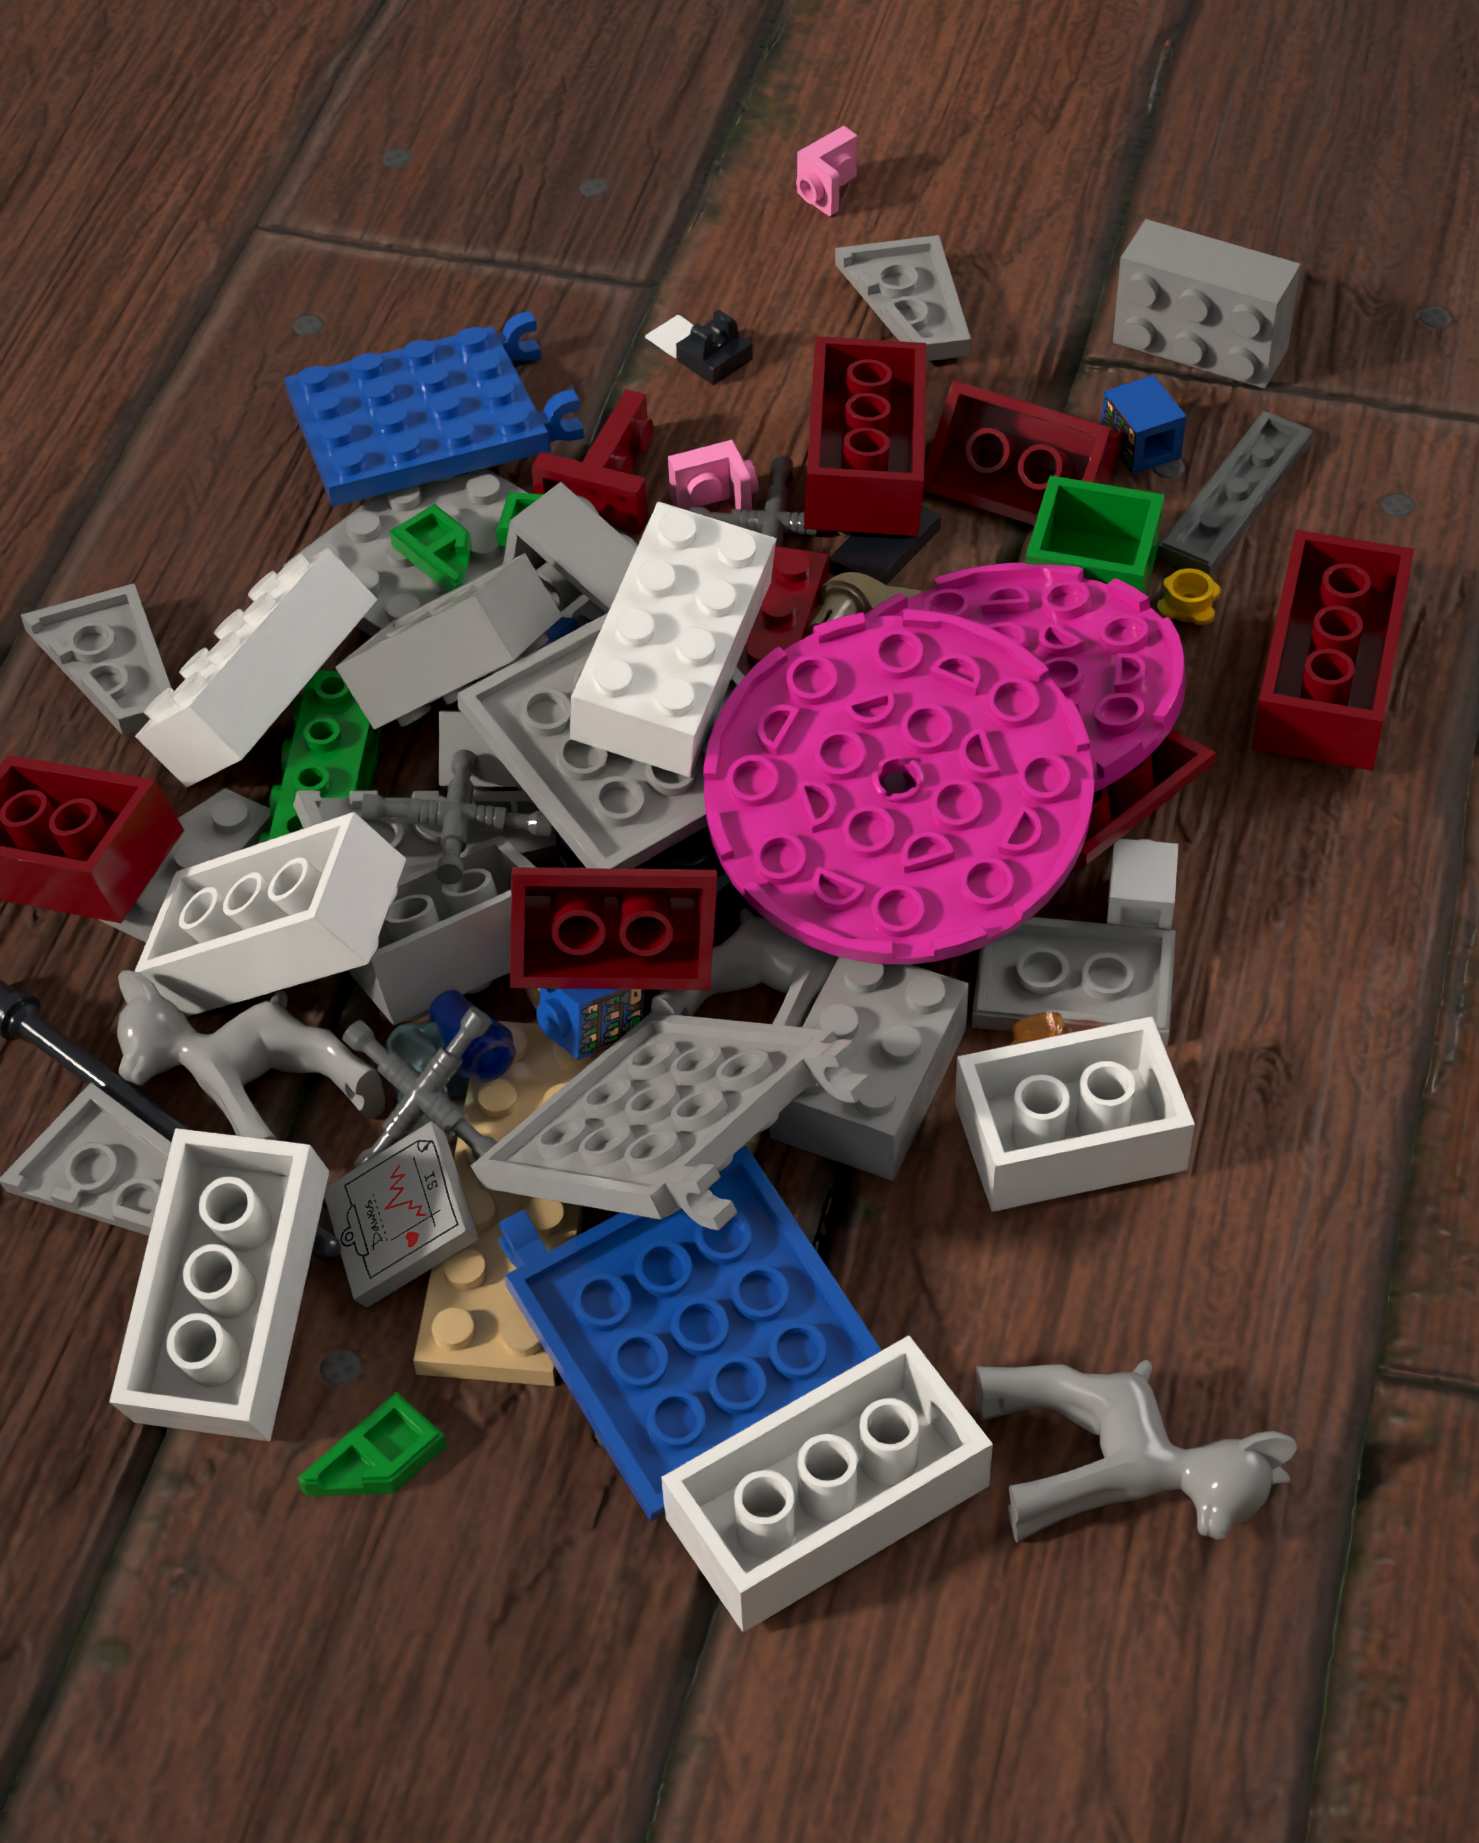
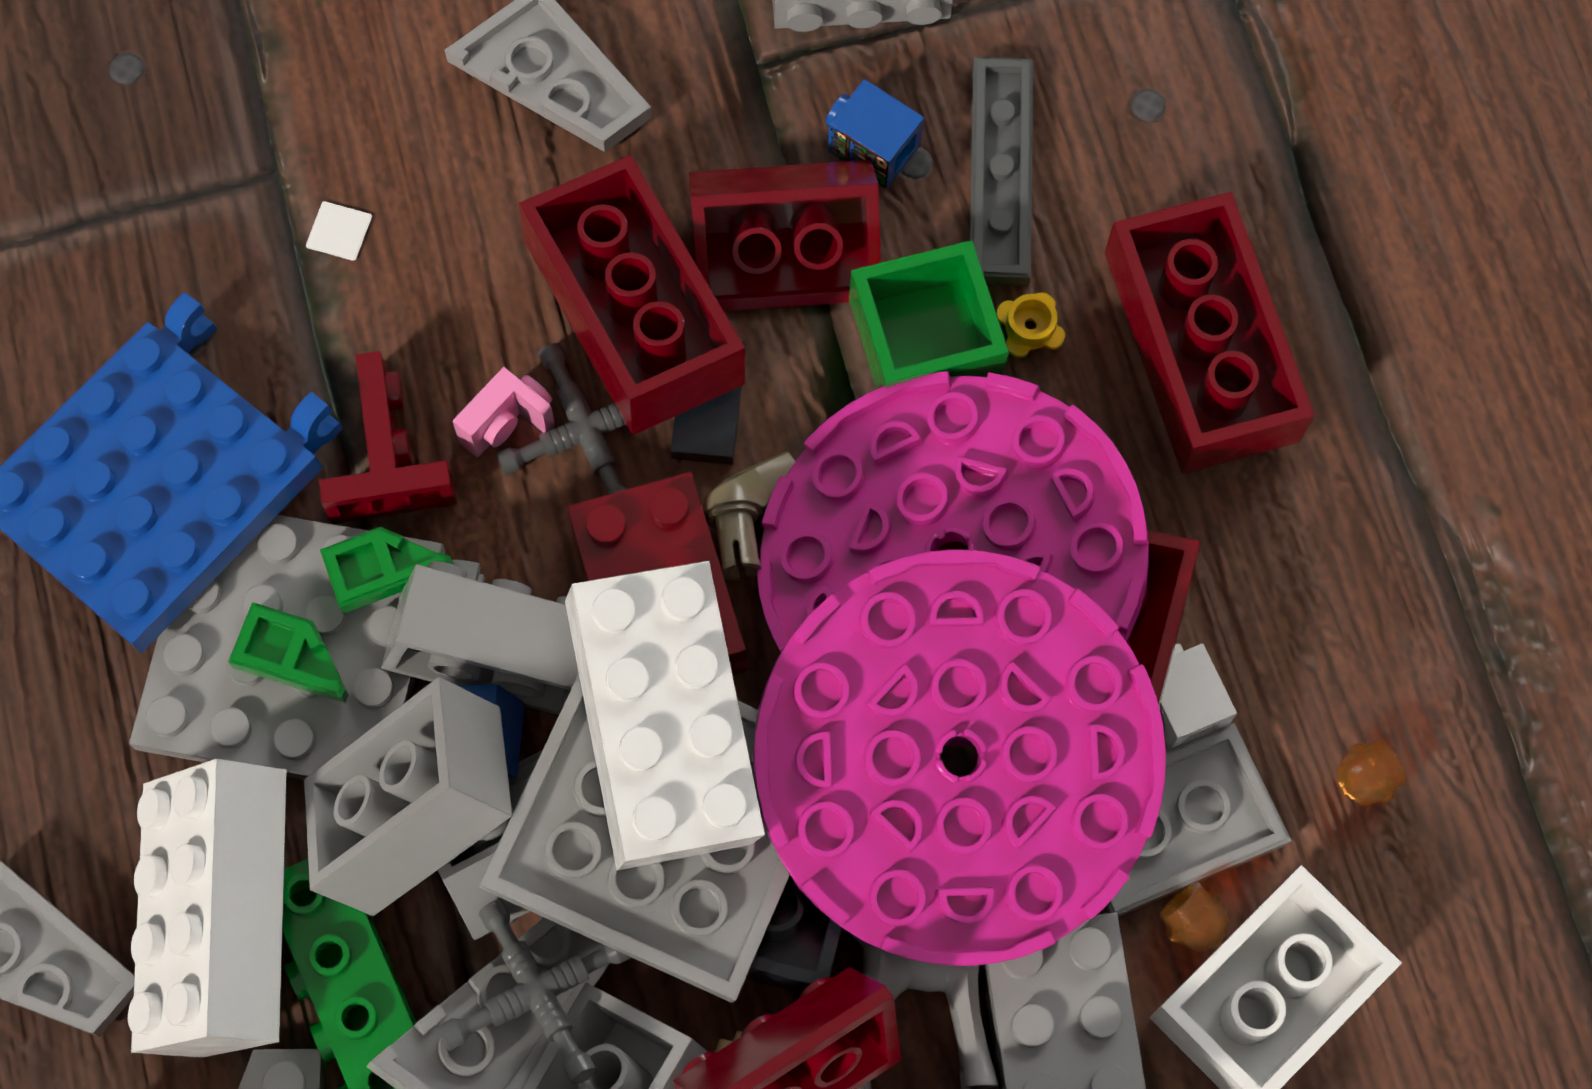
camera: 35 degrees left, 20 degrees up
(714, 349) = (393, 236): black tile -> none
(1272, 1016) = (1370, 773): none -> clear orange plate

